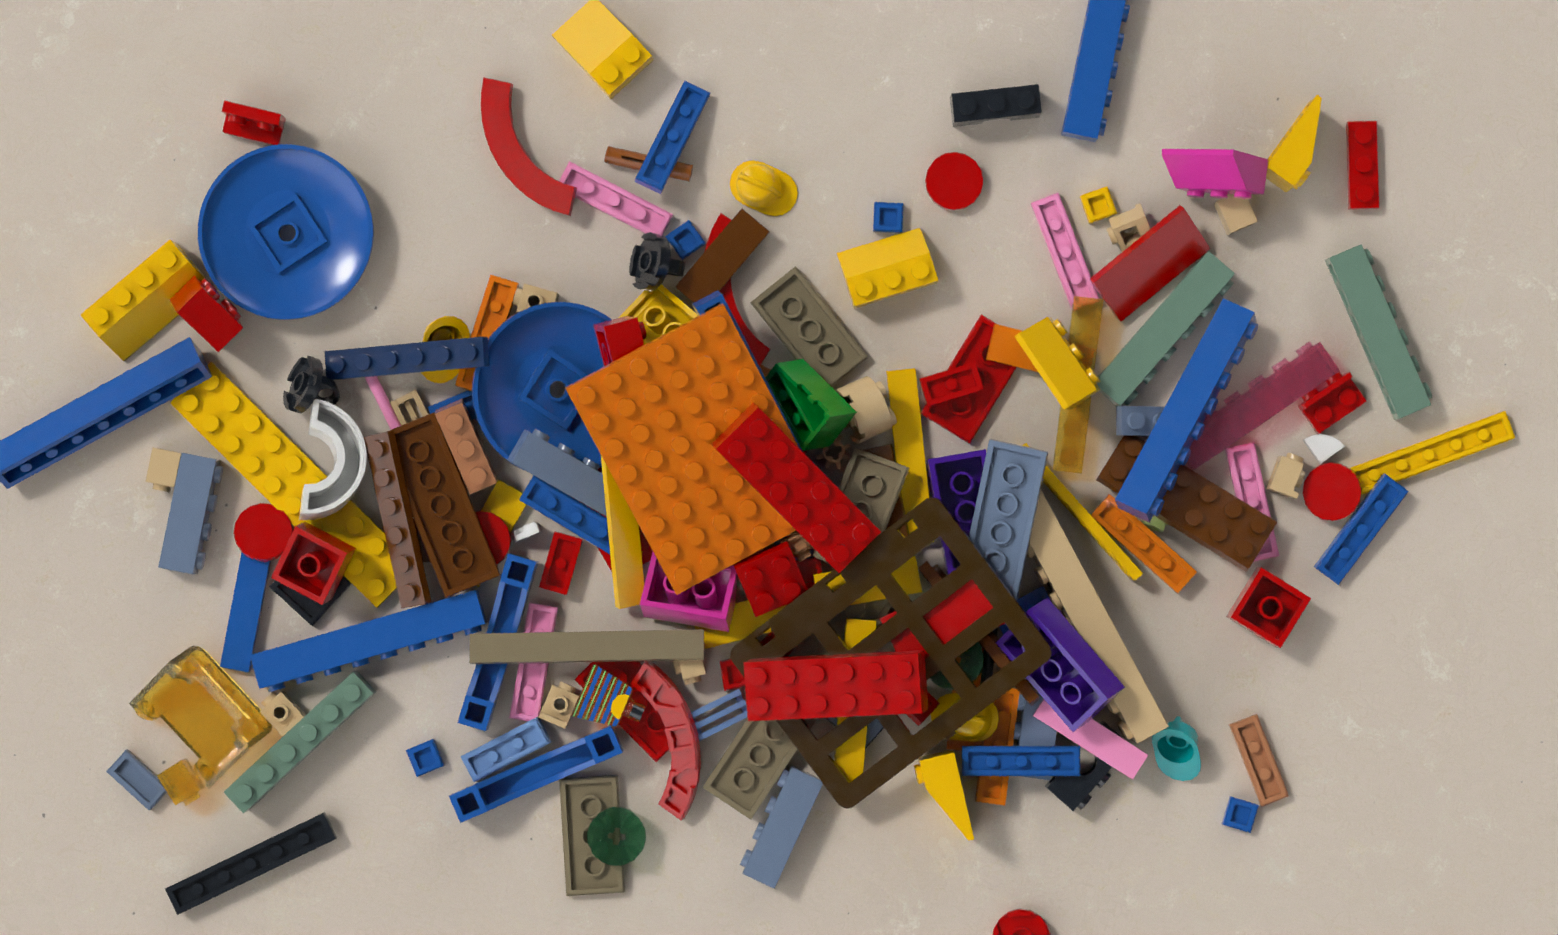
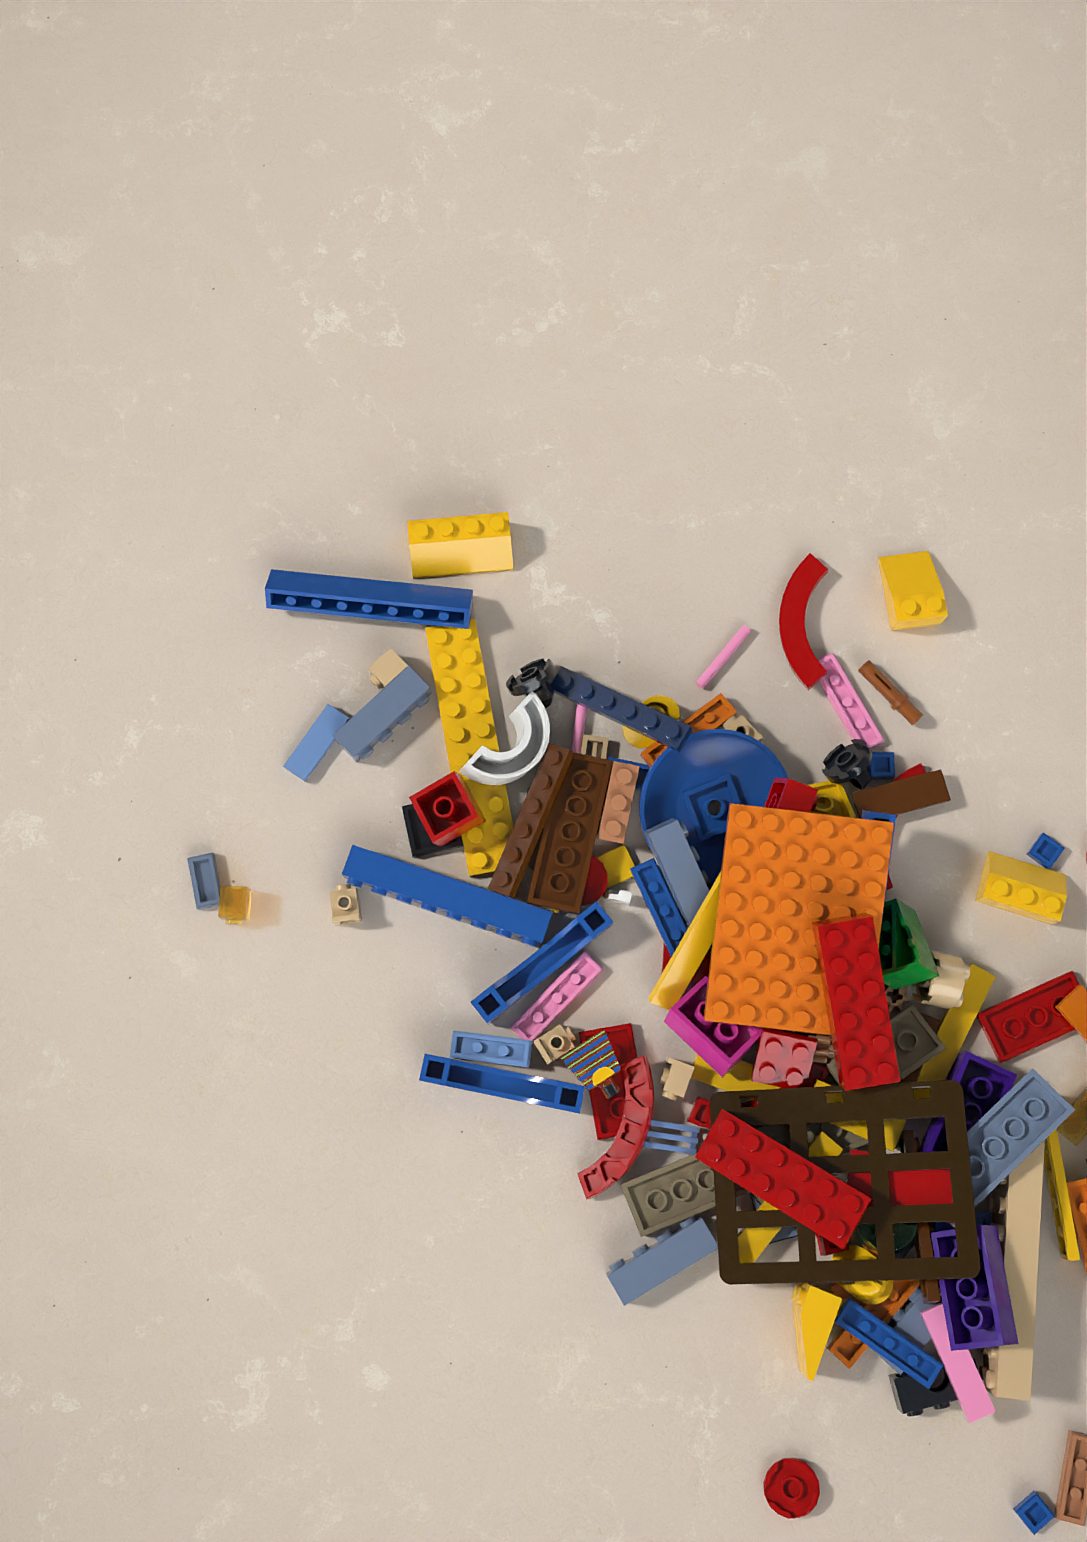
camera: 35 degrees right, 10 degrees down
(147, 582) = (315, 743): none -> medium blue tile
(204, 711) = (289, 863): clear yellow windscreen -> none
(208, 315) = (498, 580): red brick -> none
(243, 227) = (602, 530): blue dish -> none
(245, 614) = (371, 813): blue tile -> none
(251, 863) = (241, 1000): black plate -> none
(253, 123) = (623, 474): red bracket -> none
(262, 532) = (424, 763): red tile -> none
(300, 741) = (342, 935): sand green brick -> none
(425, 757) = (426, 1013): blue tile -> none
(470, 236) = (723, 656): none -> bright pink bar
(560, 563) = (628, 937): red plate -> none
(580, 803) = (509, 1162): dark tan tile -> none
(586, 646) = (608, 1014): dark tan tile -> none
(605, 823) = (513, 1177): clear green plate -> none
(672, 137) = (922, 684): blue tile -> none
(763, 188) = (963, 767): yellow piece -> none
(808, 327) = (932, 889): dark tan tile -> none
(951, 384) = (1018, 1007): red plate -> none
(1177, 750) = (1017, 1425): teal piece -> none

